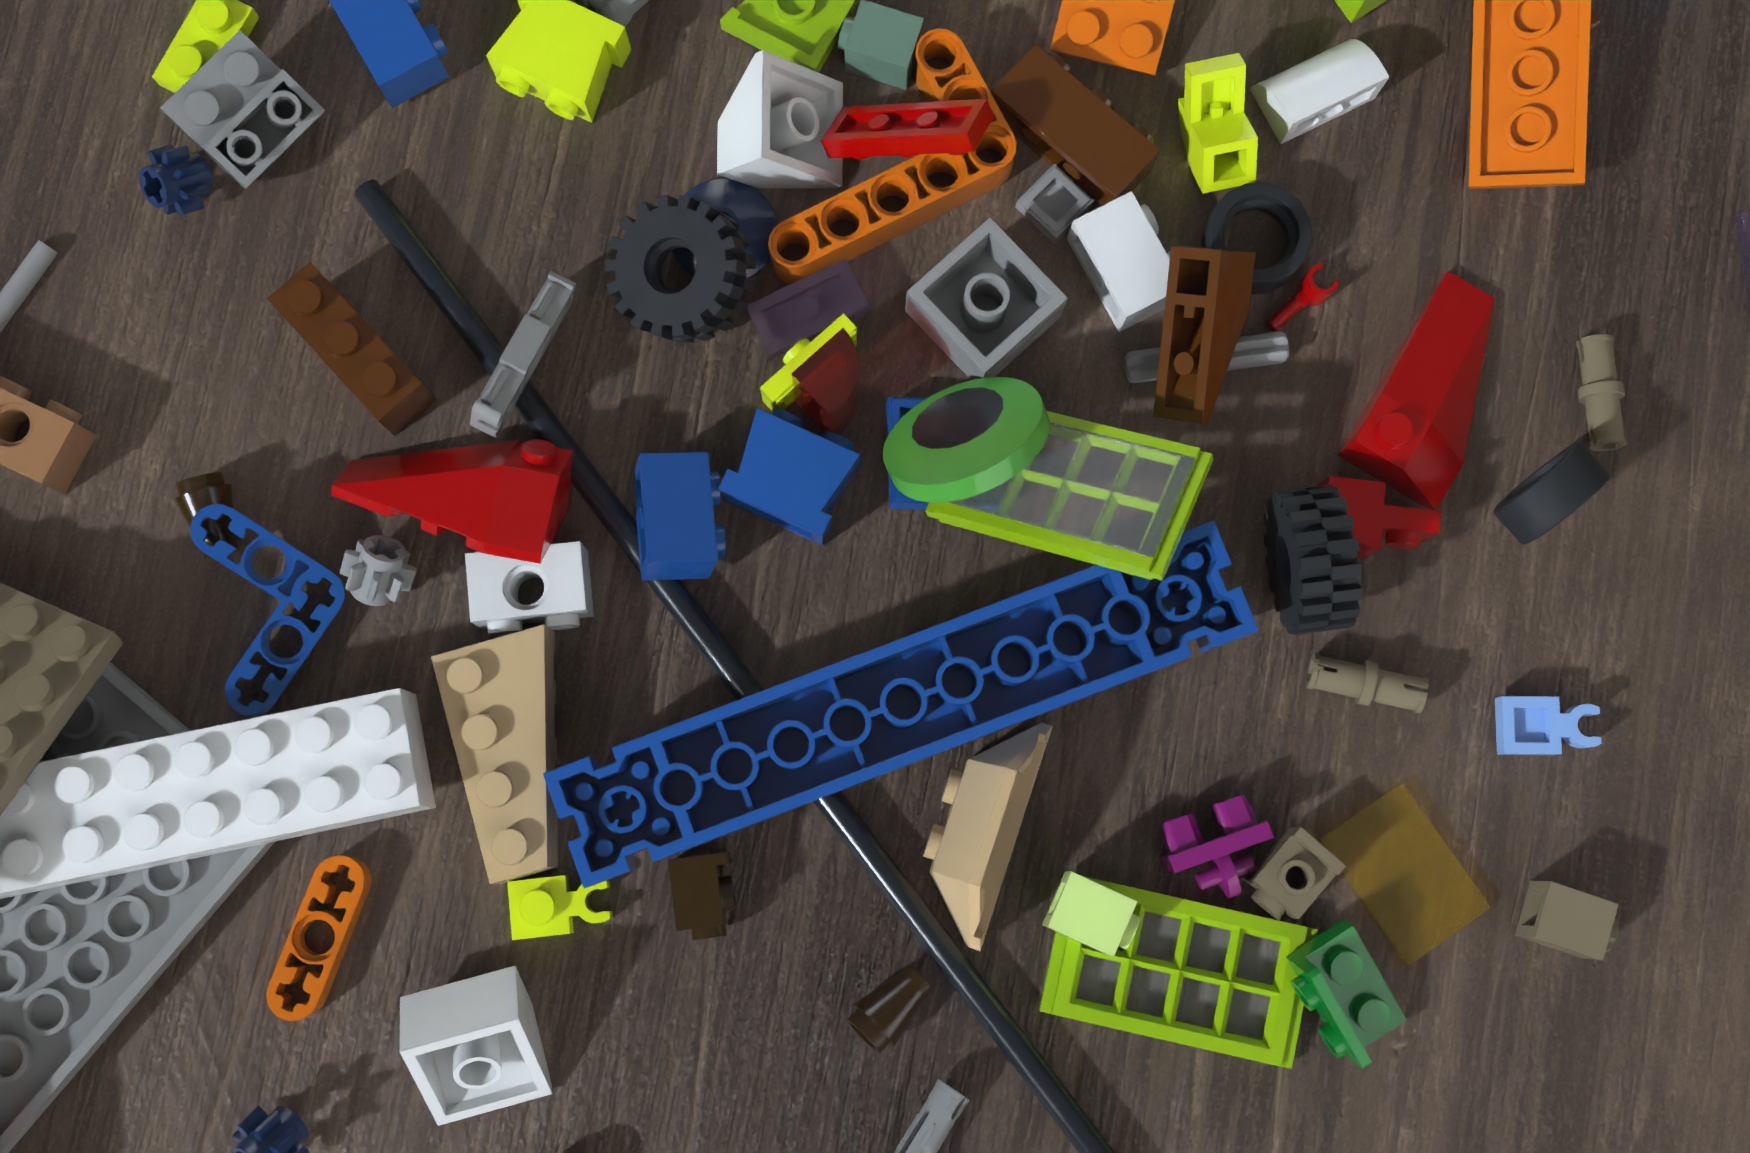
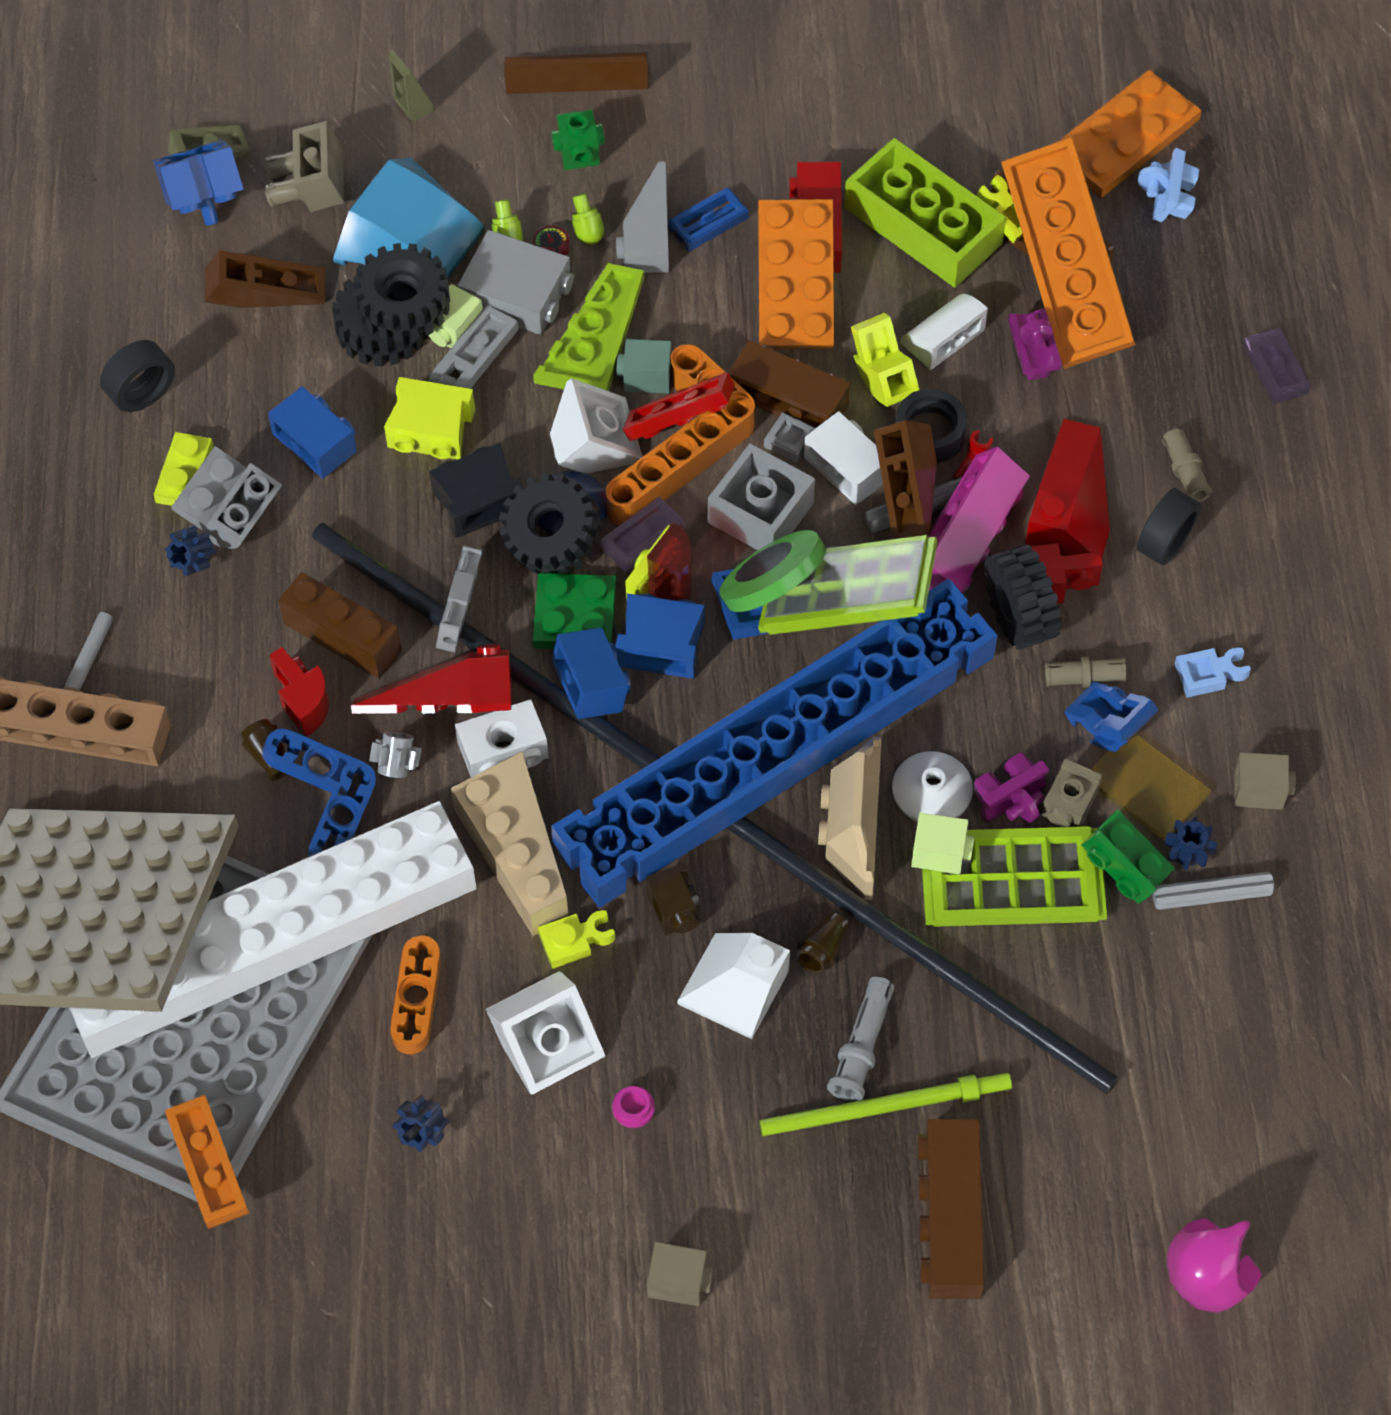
camera: 10 degrees left, 20 degrees down
(282, 447) = (304, 691): none -> red brick
(593, 179) = (474, 489): none -> black hips
(684, 401) = (572, 604): none -> green plate
(753, 1033) = (736, 981): none -> white slope
(1076, 805) = (915, 795): none -> white dish
(1276, 407) = (975, 516): none -> dark pink brick
(1382, 766) = (1110, 714): none -> blue cylinder
(1441, 145) = (1035, 344): none -> magenta hips
(1452, 1000) = (1190, 843): none -> dark blue gear
(1453, 1065) = (1213, 890): none -> light grey axle

